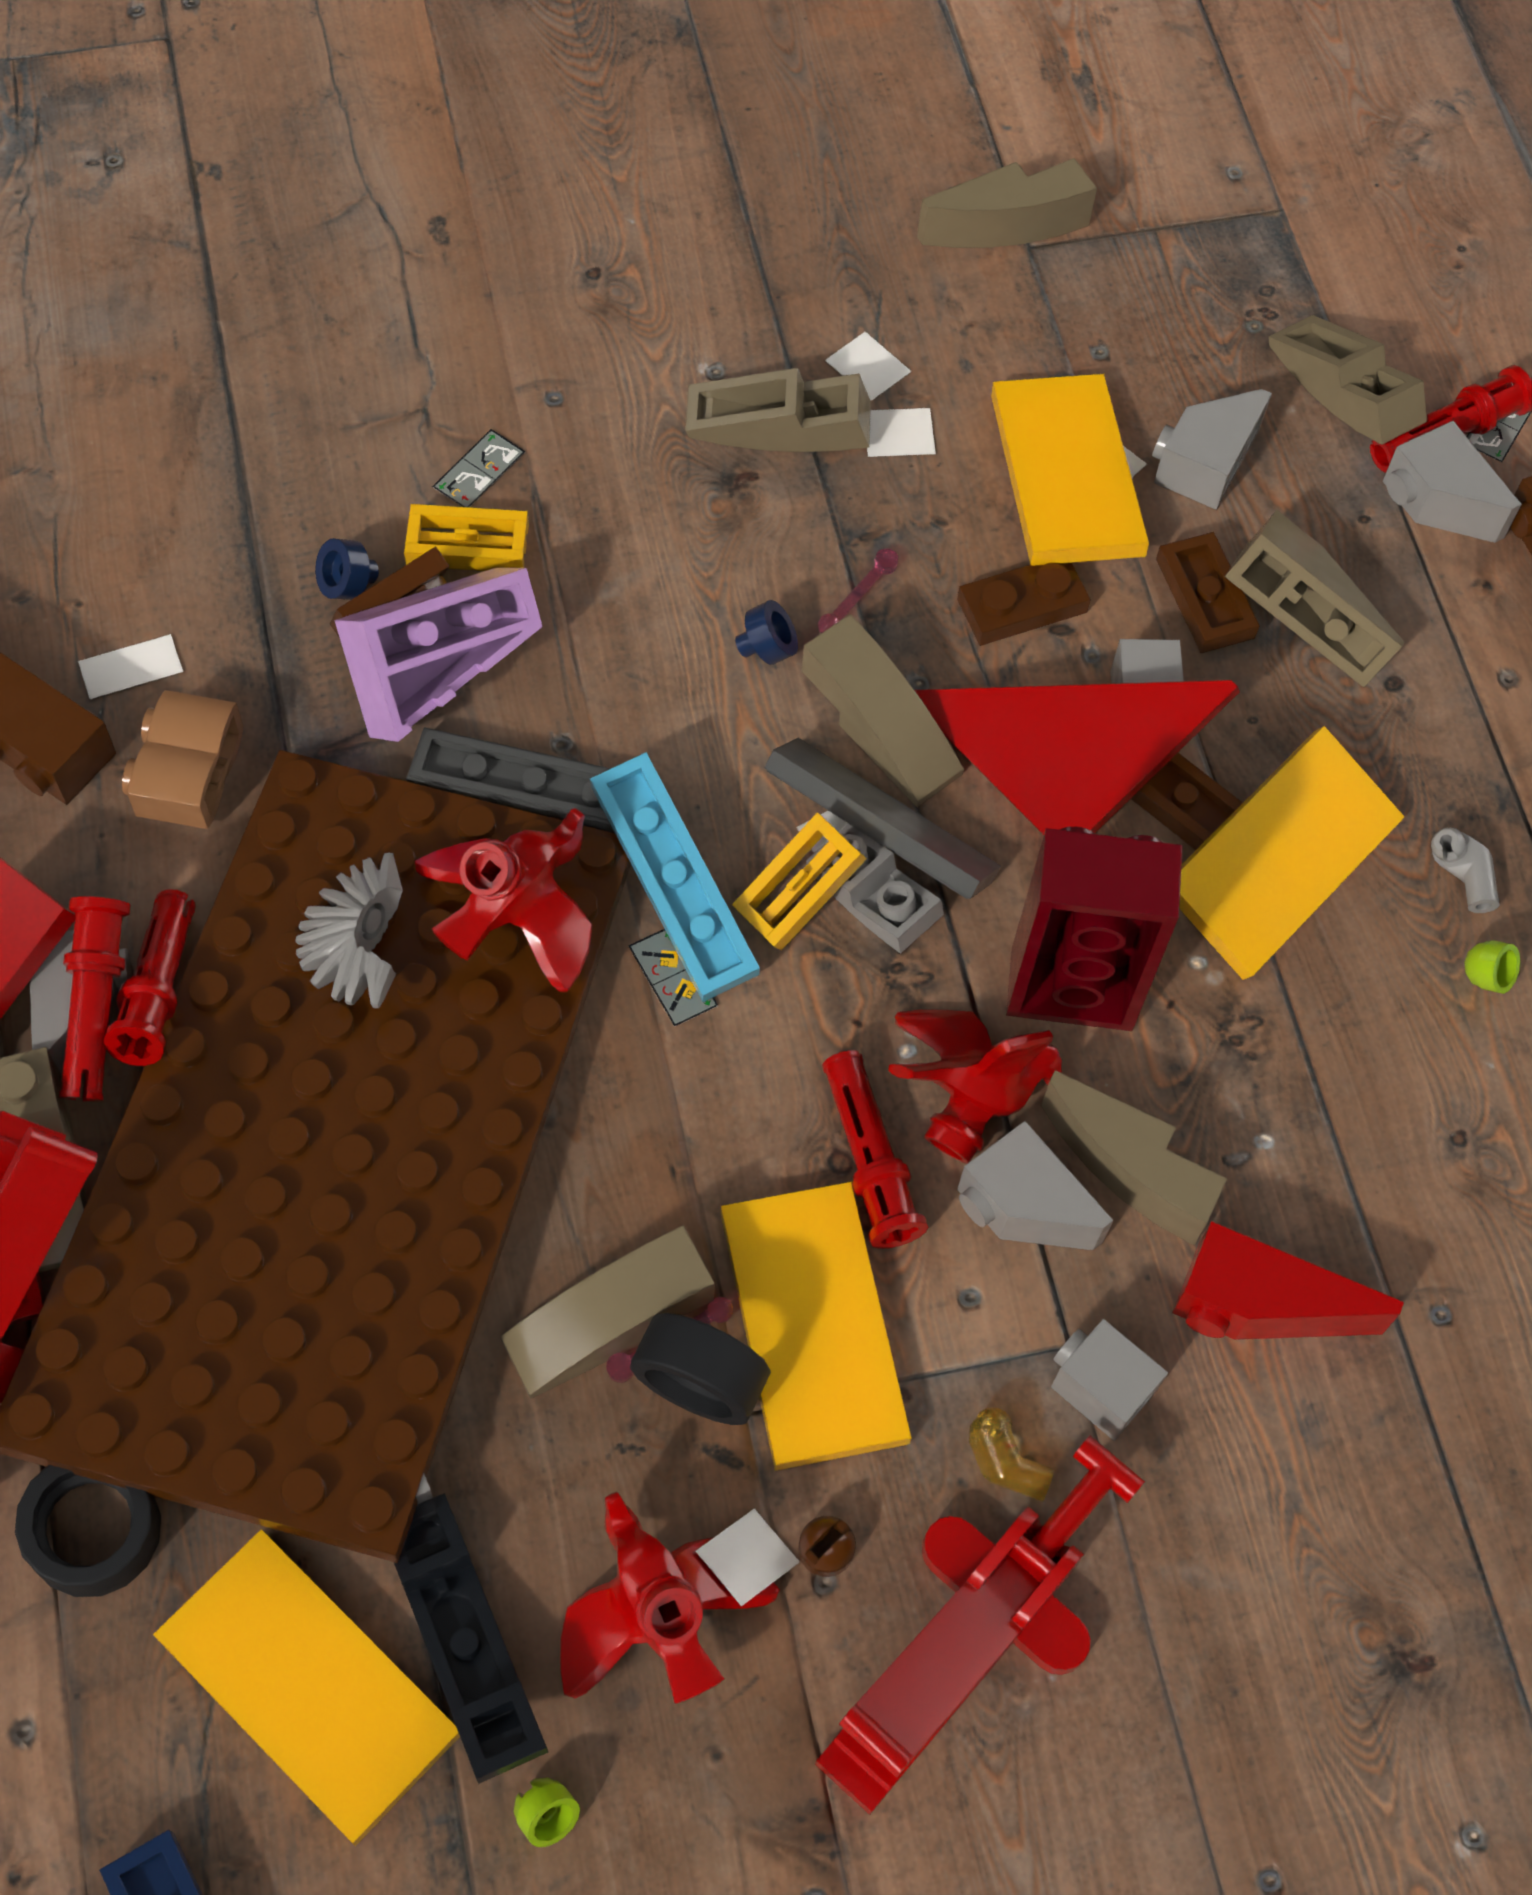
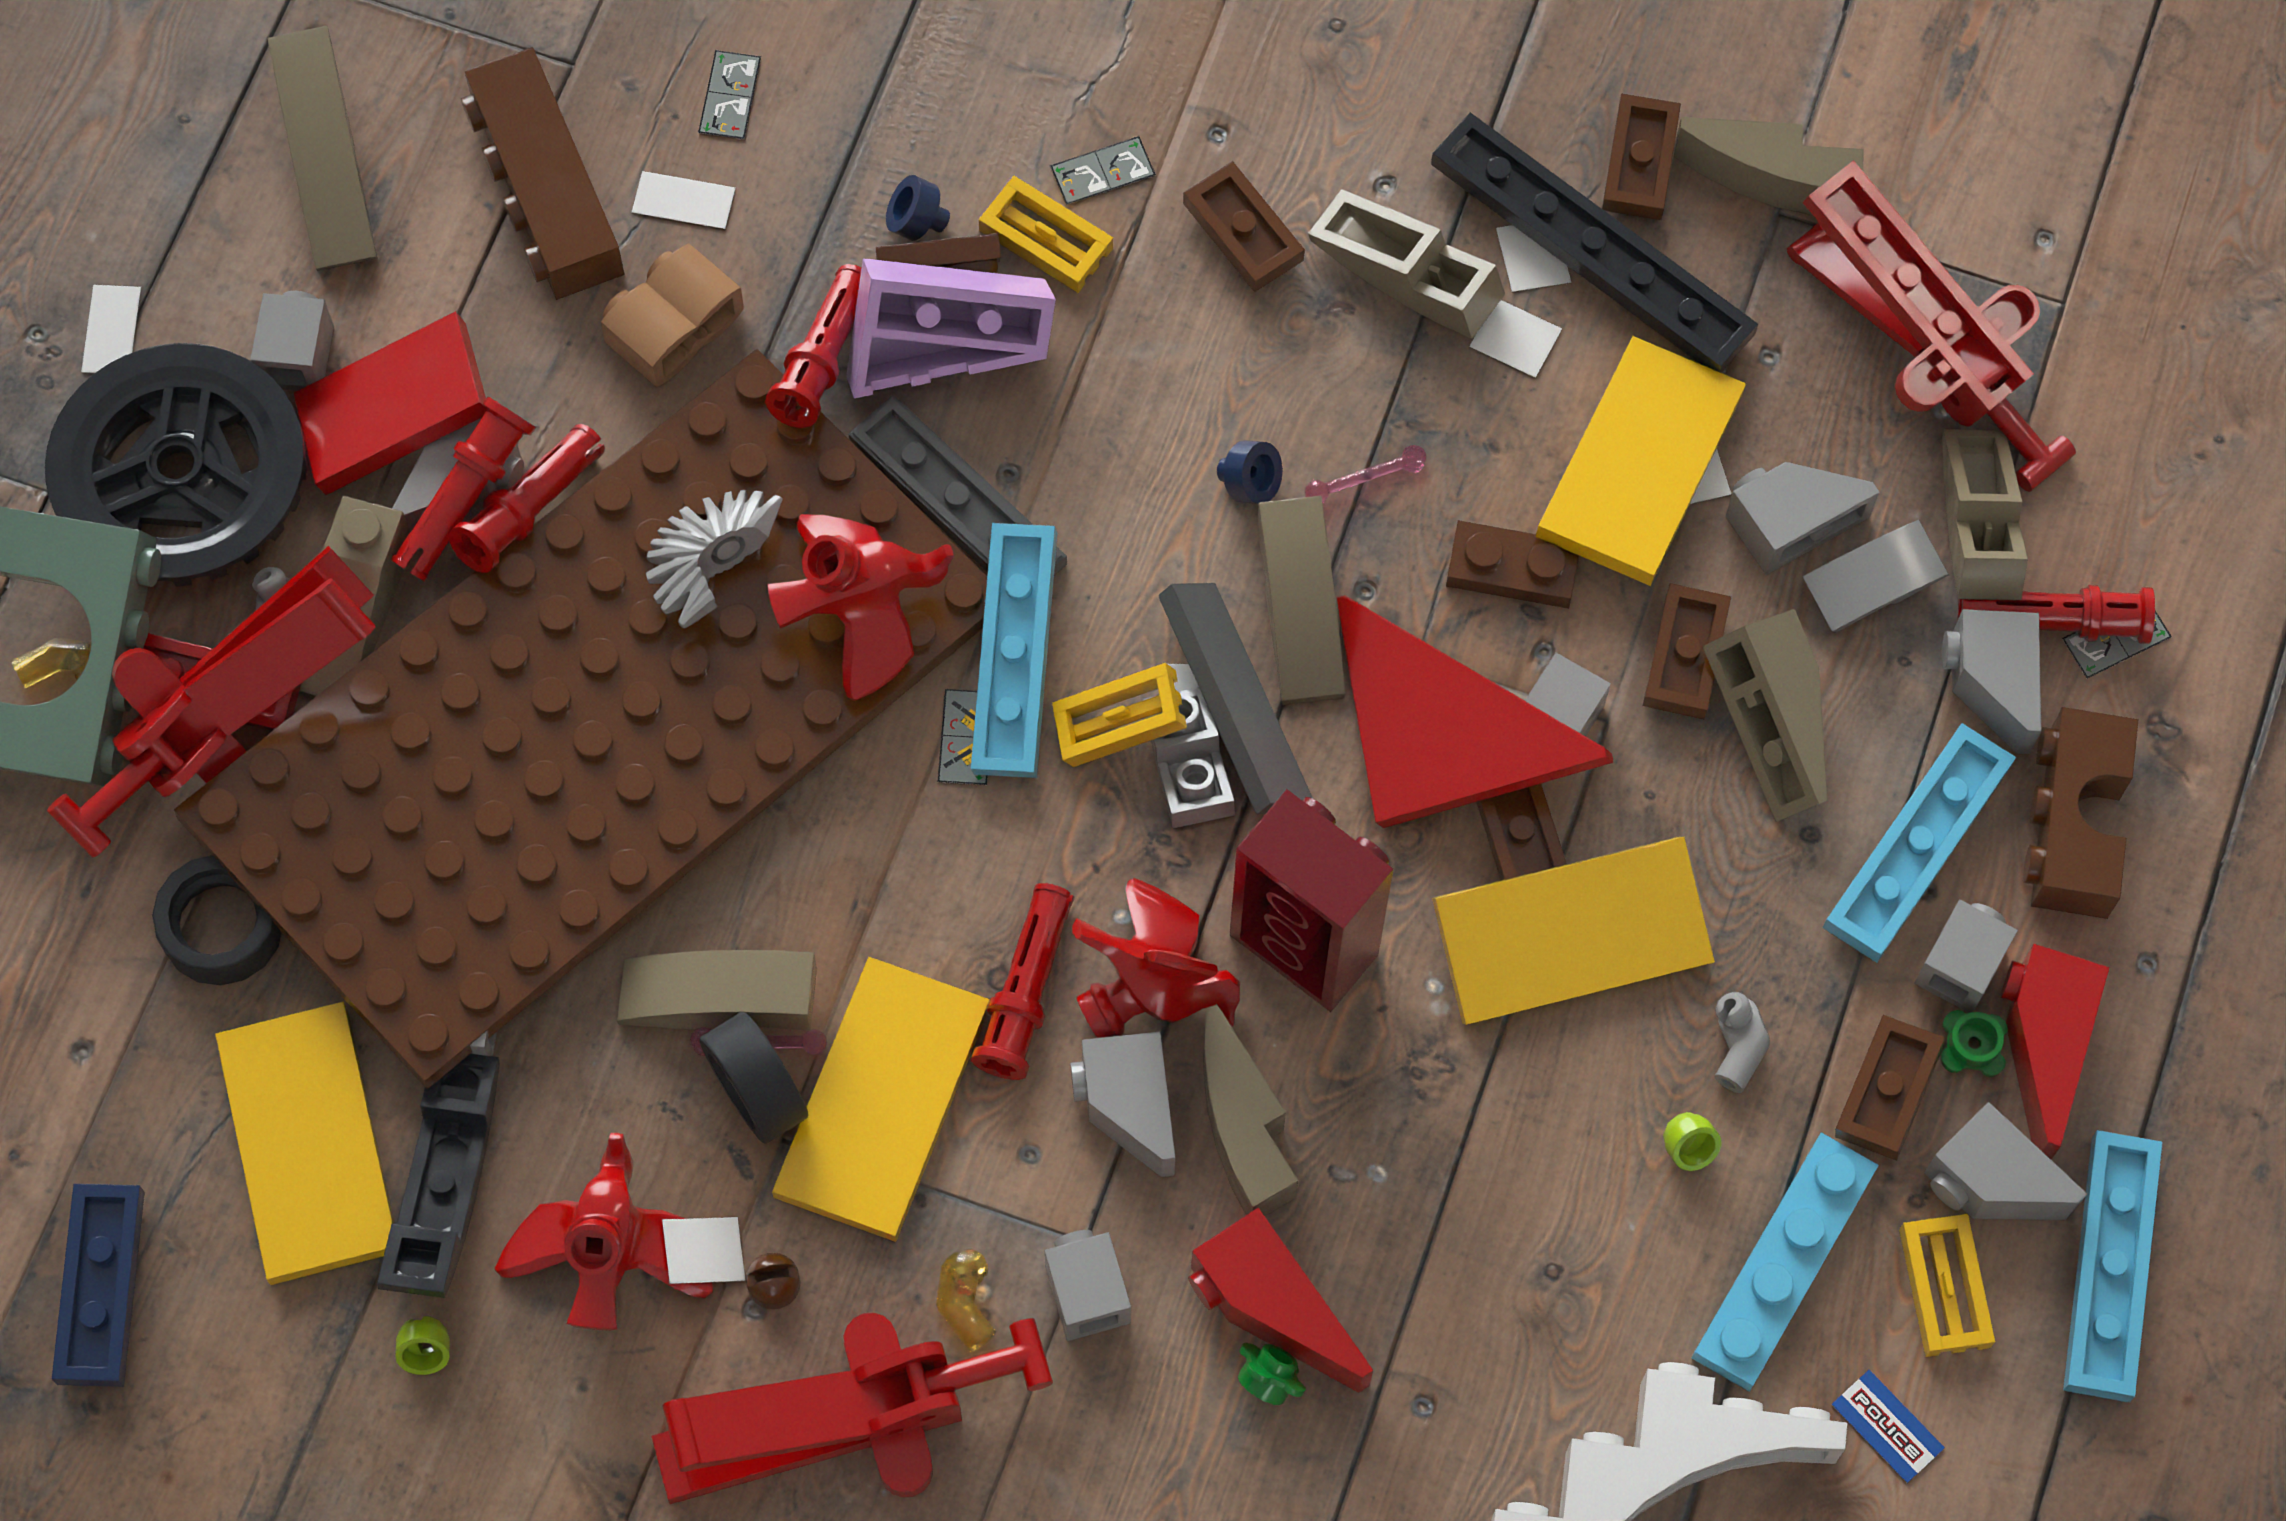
camera: 35 degrees right, 5 degrees up
(116, 563) = (729, 94): none -> light grey sticker
(332, 670) = (813, 364): none -> red pin
(629, 450) = (1243, 226): none -> reddish brown plate
(904, 250) = (1641, 156): none -> reddish brown plate
(912, 329) = (1594, 244): none -> black plate
(1198, 244) = (1898, 284): none -> red piece
(1304, 463) = (1875, 575): none -> light grey slope
(1311, 1361) = (1270, 1373): none -> green plate
(1485, 643) = (1919, 842): none -> medium azure plate

